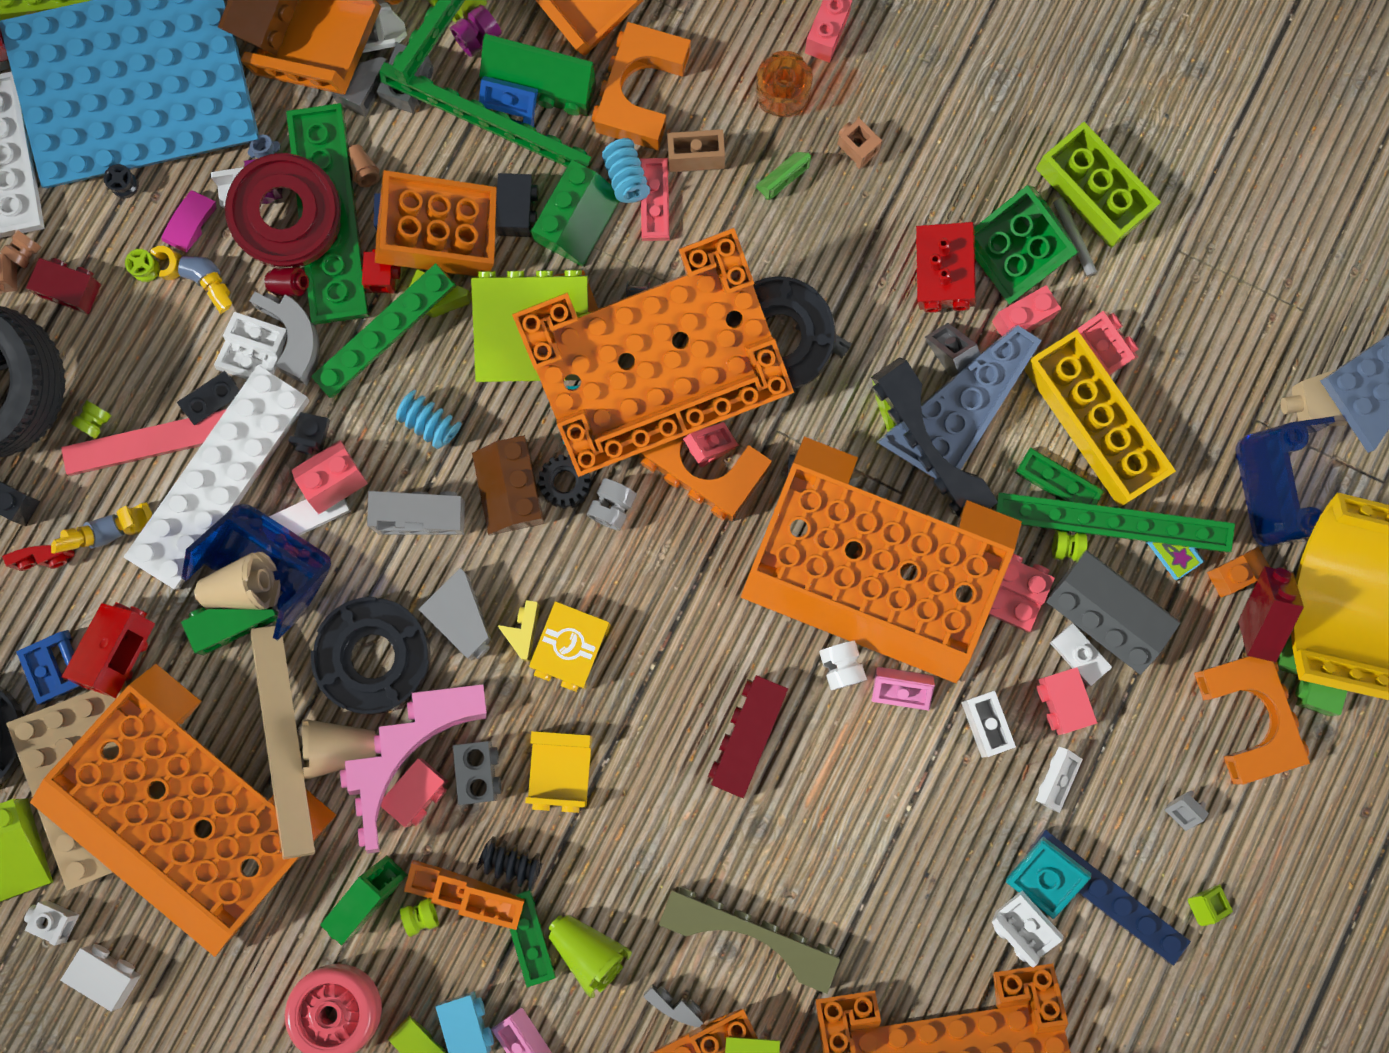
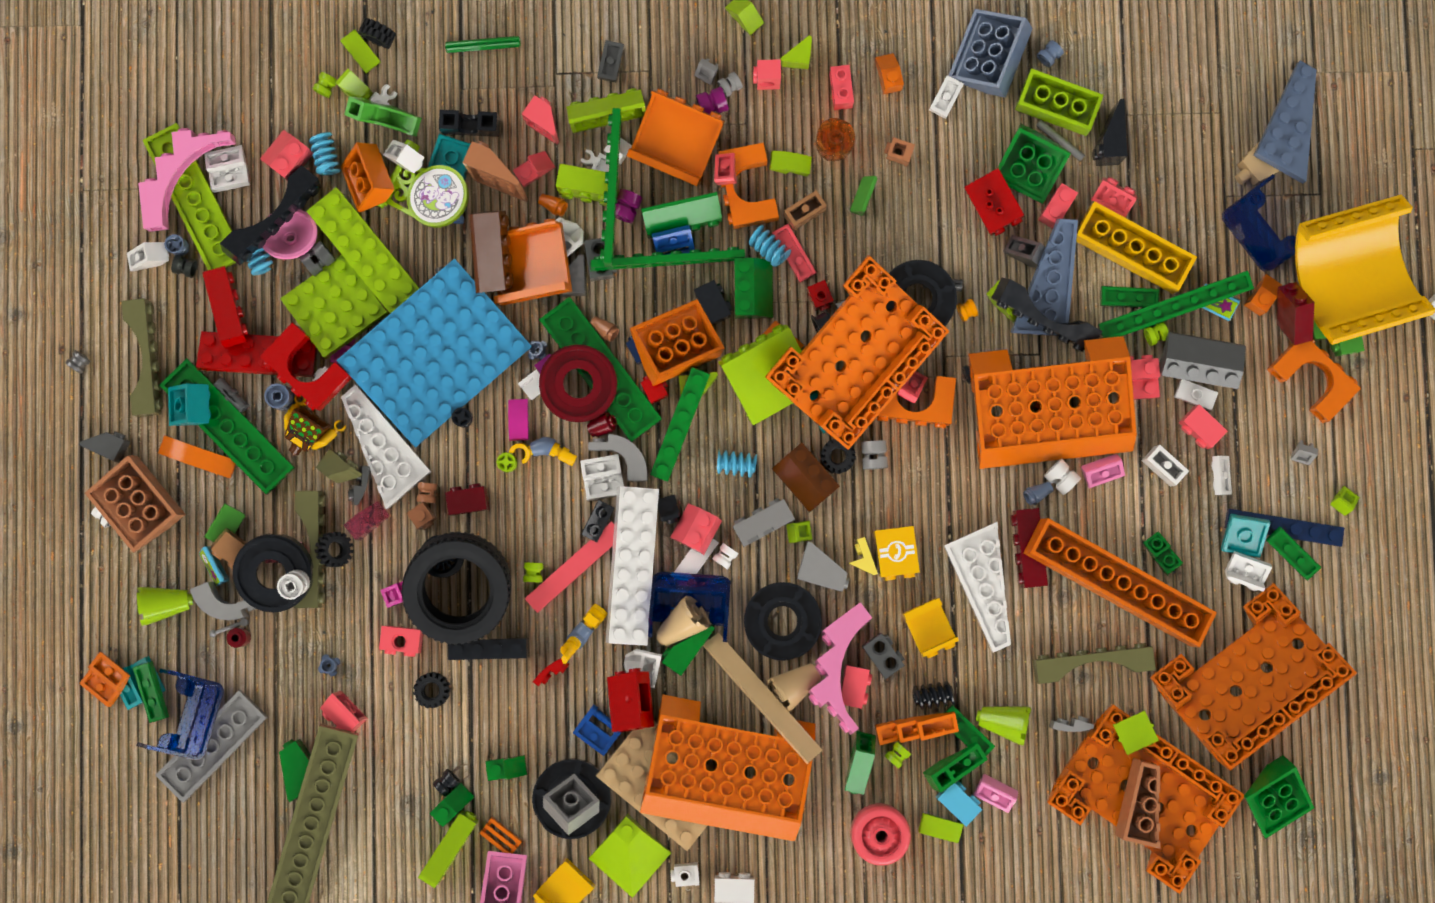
camera: 25 degrees left, 5 degrees up
(164, 613) = (646, 661): none -> white slope
(345, 531) = (723, 560): none -> white wheel
(461, 553) = (799, 531): none -> lime slope
(484, 976) = (954, 767): none -> green slope
(618, 43) = (725, 169): none -> coral slope
(656, 265) = (820, 296): none -> red brick
(665, 732) = (980, 572): none -> white wing
(708, 81) = (790, 162): none -> lime slope
(798, 669) = (1036, 493): none -> sand blue cone
(836, 384) = (967, 310): none -> light orange wheel
(842, 848) = (1120, 582): none -> orange brick
(898, 44) = (889, 73): none -> orange slope
(923, 841) = (1162, 553): none -> green slope
(956, 107) = (946, 96): none -> white plate
(1044, 81) = (991, 51): none -> sand blue slope
(1101, 938) = (1293, 553): none -> green tile
(1118, 122) = (1050, 53): none -> sand blue wheel
(1137, 273) = (1112, 143): none -> black slope

